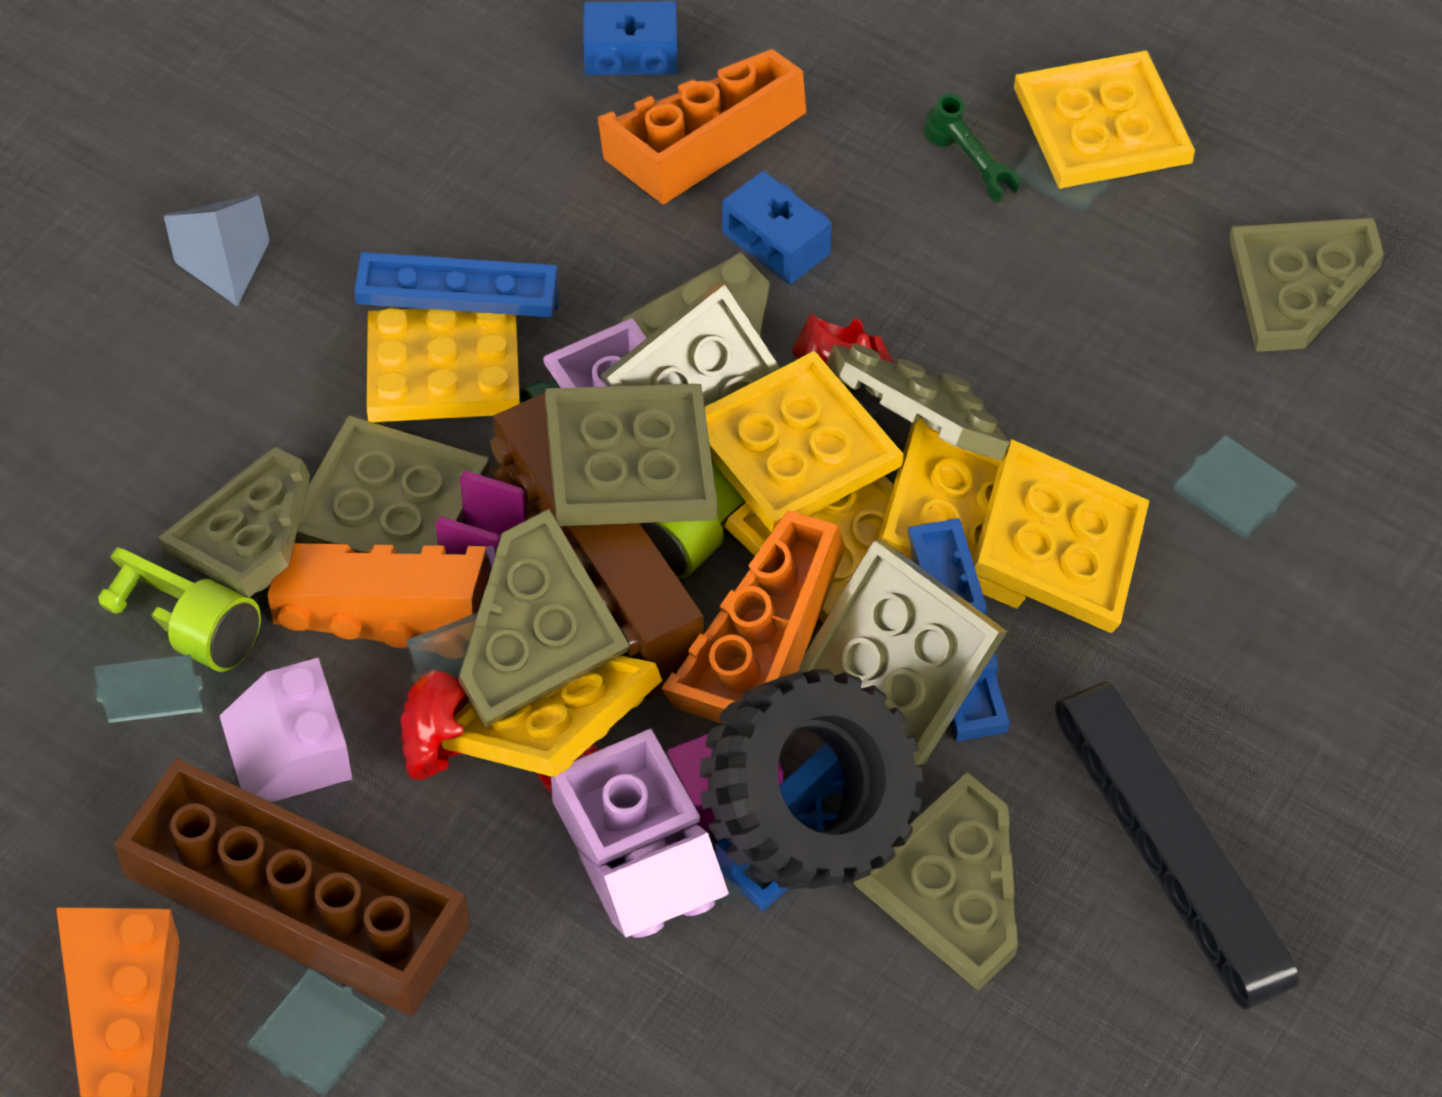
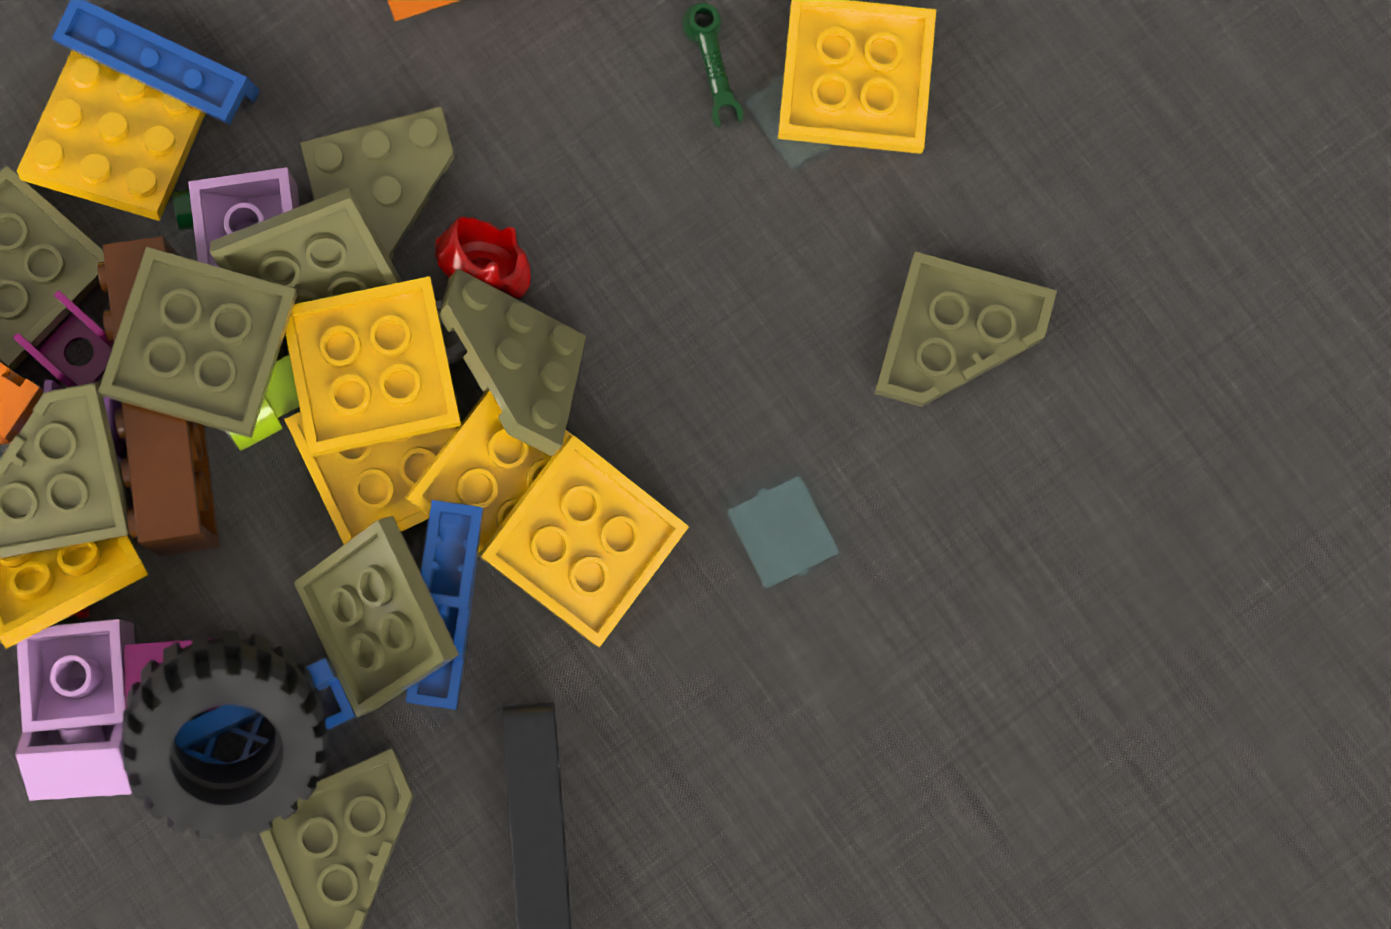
camera: 20 degrees right, 25 degrees up
(762, 622) = (264, 551): orange wedge -> none
(776, 227) = (477, 64): blue brick -> none

